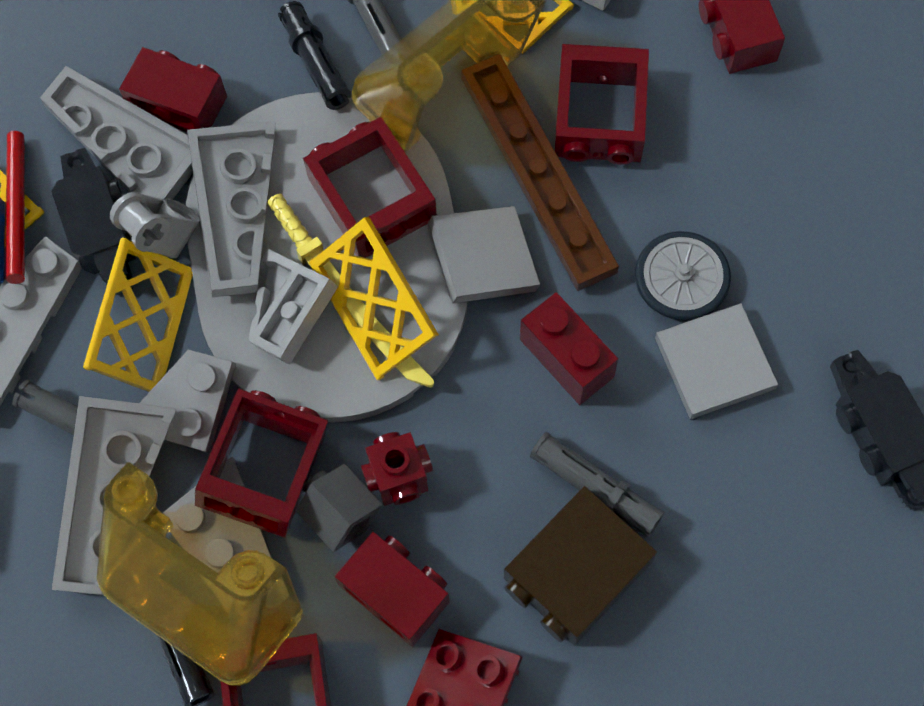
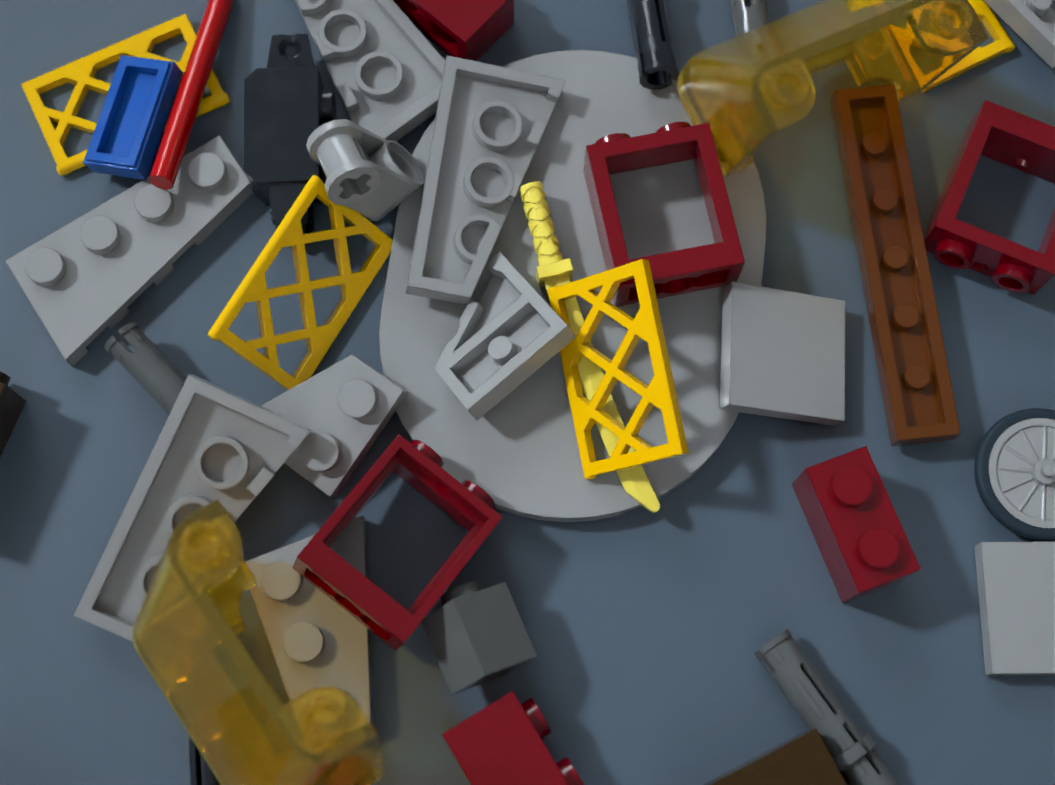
camera: 15 degrees right, 5 degrees up
(401, 483) = (565, 636): dark red brick -> none

